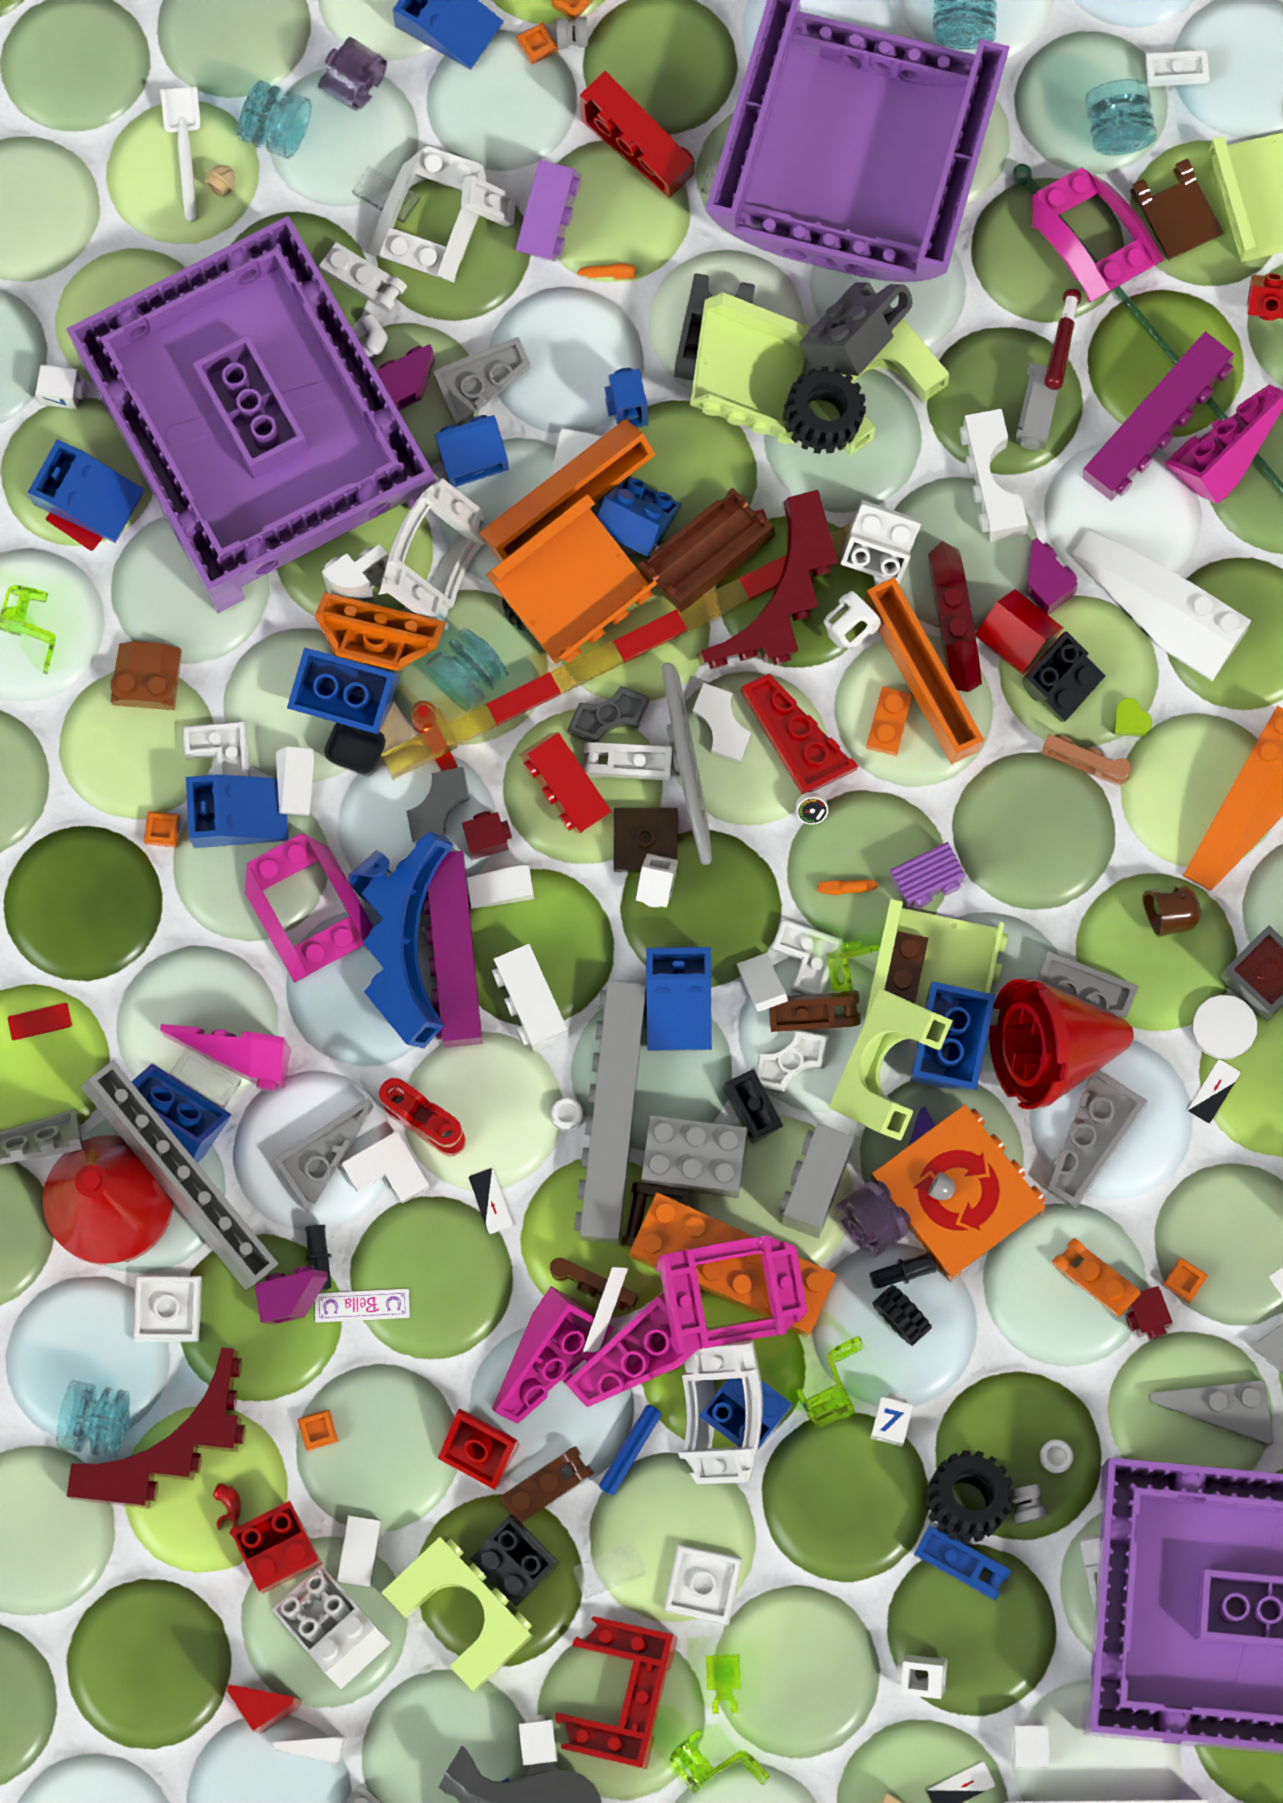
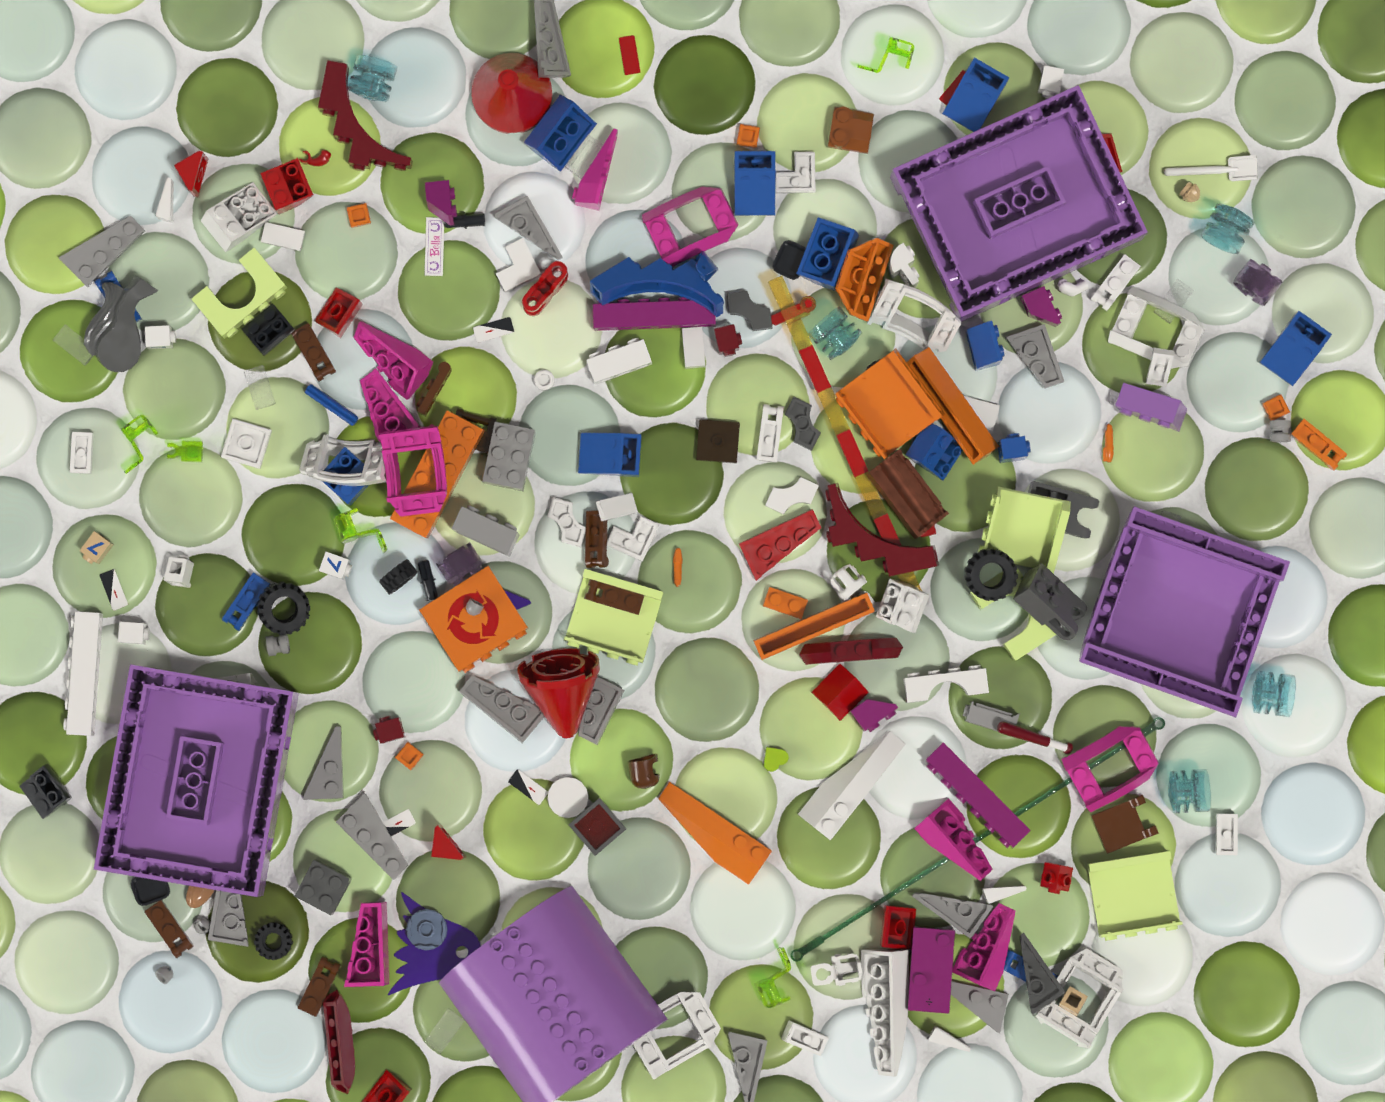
camera: 90 degrees right, 10 degrees up
(167, 1308) = (441, 127): white tile -> none
(179, 1175) = (517, 135): light grey brick -> none
(294, 780) = (772, 221): white slope -> none
(564, 783) = (757, 391): red wedge -> none
(605, 1309) = (415, 394): white sticker -> none
(612, 1113) = (541, 408): light grey brick -> none
(635, 135) = (1199, 468): red wedge -> none
(652, 1658) = (157, 393): red wedge -> none
(656, 880) = (688, 445): white brick -> none
(686, 761) = (765, 470): light grey piece -> none
(752, 1106) = (539, 496): black slope -> none
(811, 808) = (729, 548): tile -> none
(839, 959) = (632, 563): clear neon green bracket -> none
(859, 1089) = (540, 562): yellowish green arch -> none
(927, 876) = (679, 618): medium lavender brick -> none
(962, 1052) = (570, 623): blue slope -> none
(1056, 1456) = (306, 665): white tile -> none
(1062, 677) = (803, 716): black brick -> none
(1087, 760) = (748, 728): nougat plate -> none
(1096, 1278) = (412, 699): orange plate -> none

